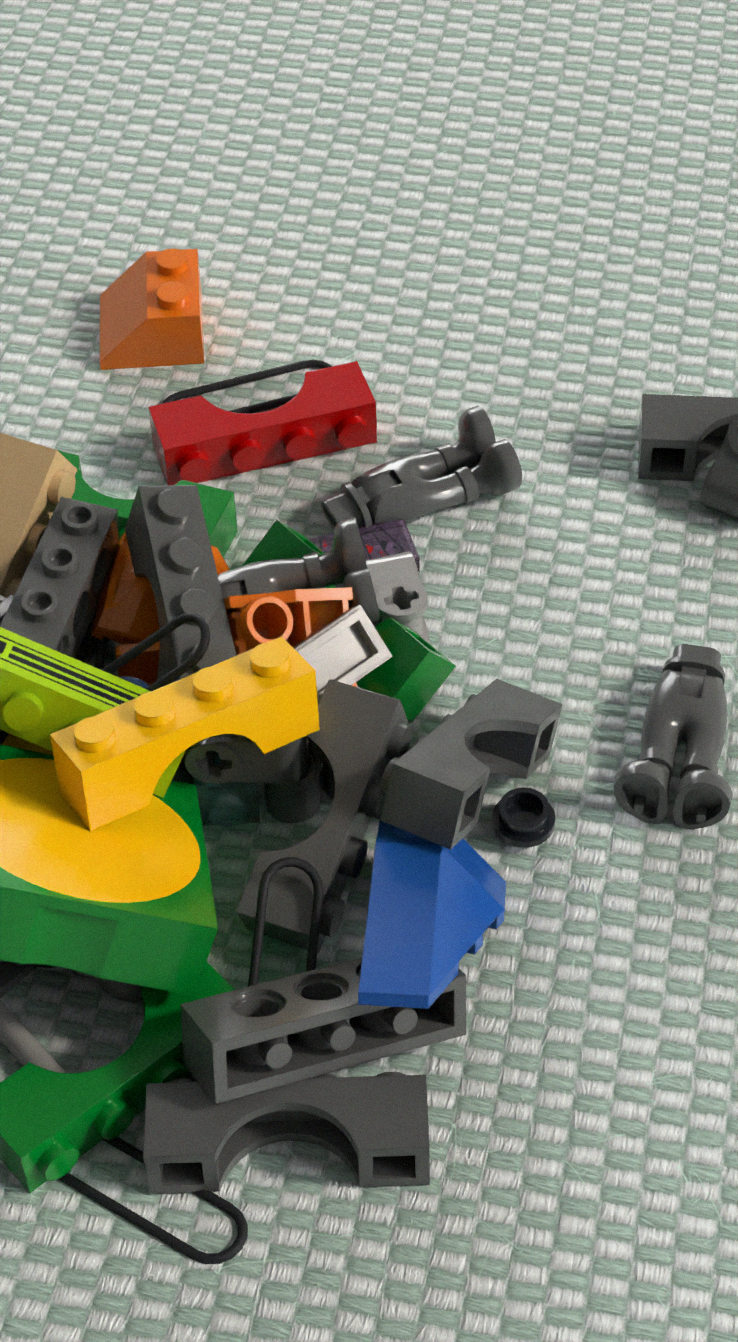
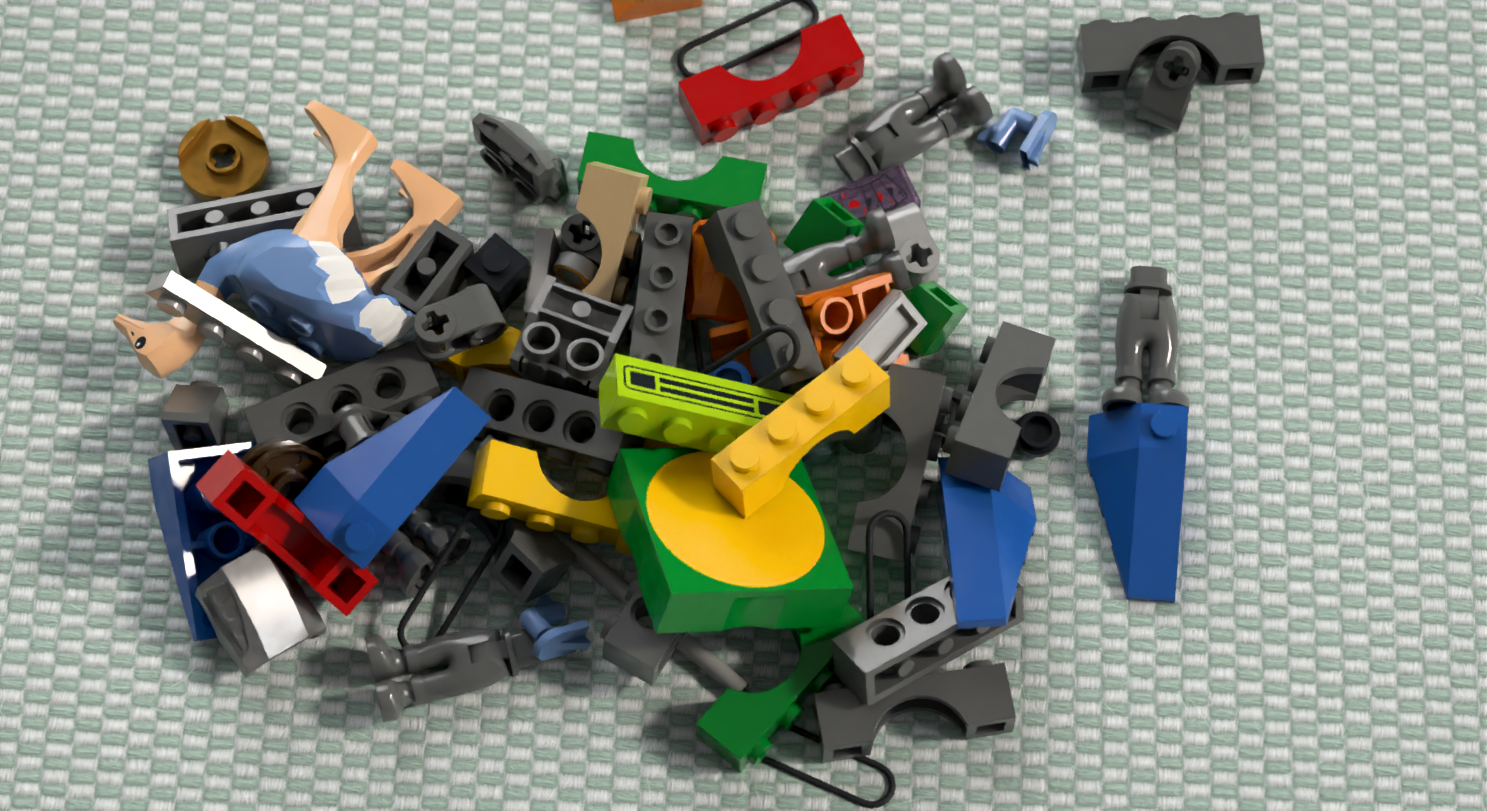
camera: 10 degrees left, 20 degrees up
(571, 510) = (1039, 132): none -> medium blue piece
(652, 890) = (1139, 479): none -> blue wedge

